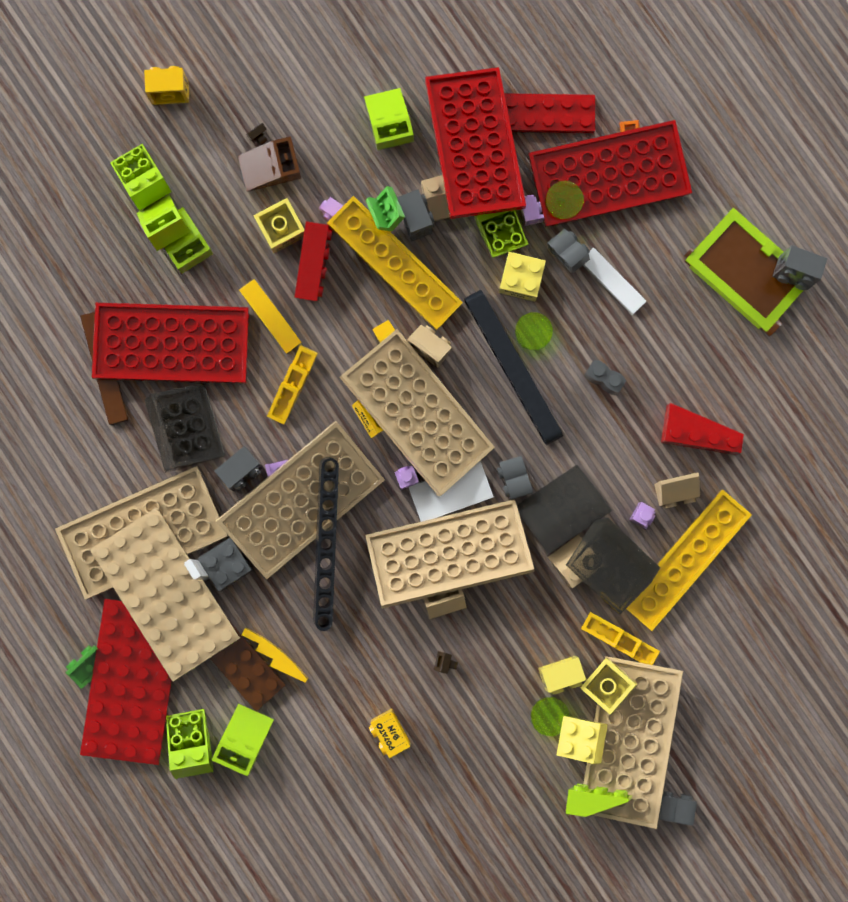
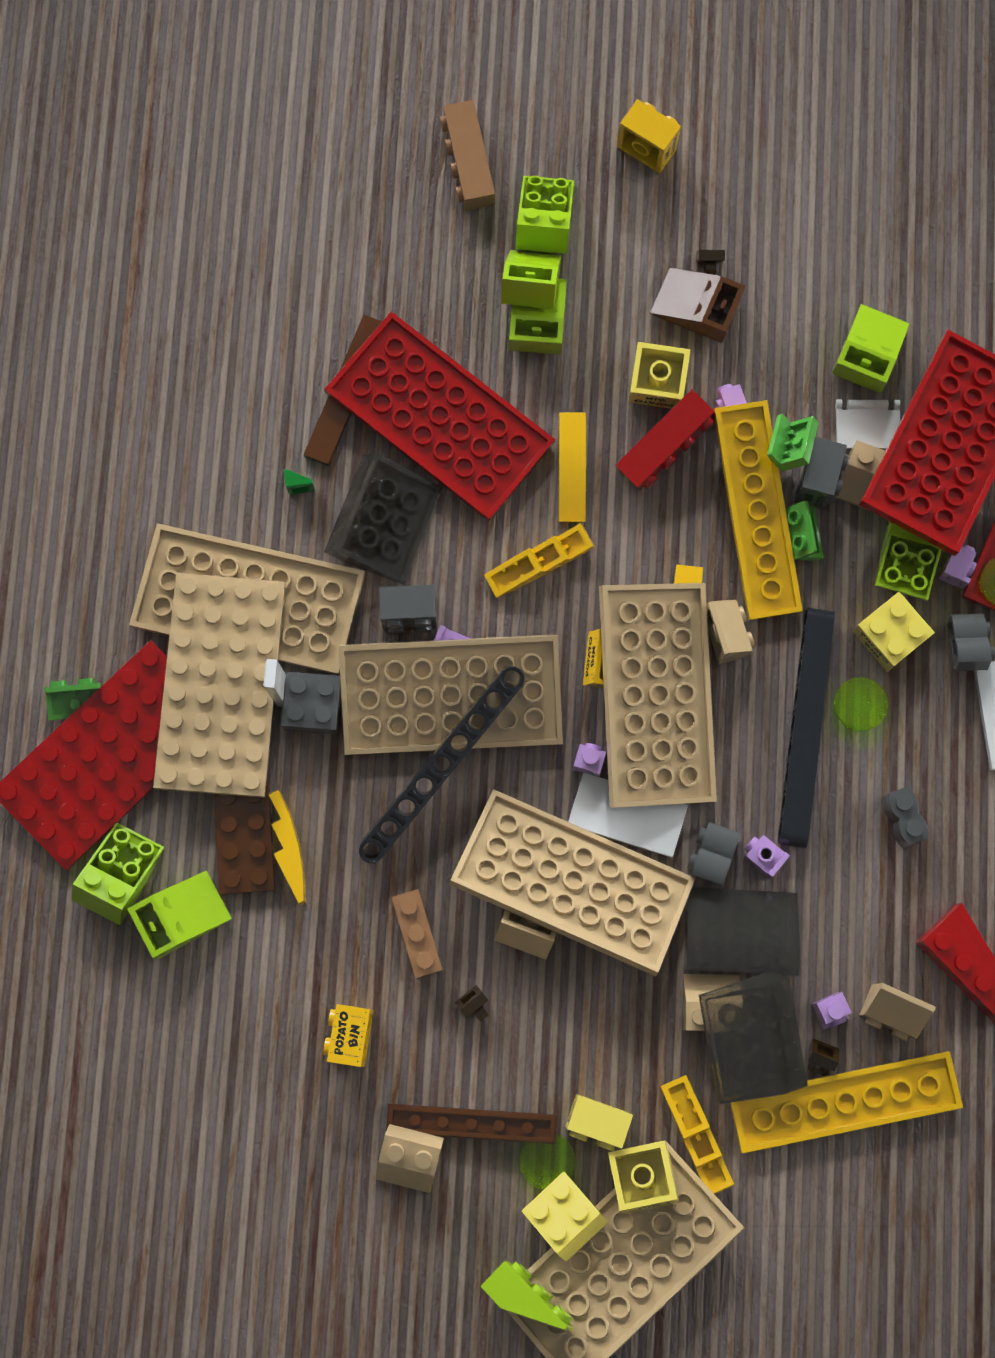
camera: 40 degrees right, 5 degrees down
(69, 174) = (469, 155): none -> medium nougat brick
(118, 444) = (297, 483): none -> green slope
(384, 648) = (417, 934): none -> medium nougat brick
(418, 165) = (866, 422): none -> white piece
(430, 256) = (804, 532): none -> bright green bracket
(473, 773) = (409, 1158): none -> tan slope
(493, 728) = (475, 1123): none -> reddish brown tile
(550, 462) = (769, 866): none -> lavender brick
(656, 543) = (823, 1055): none -> dark brown tile

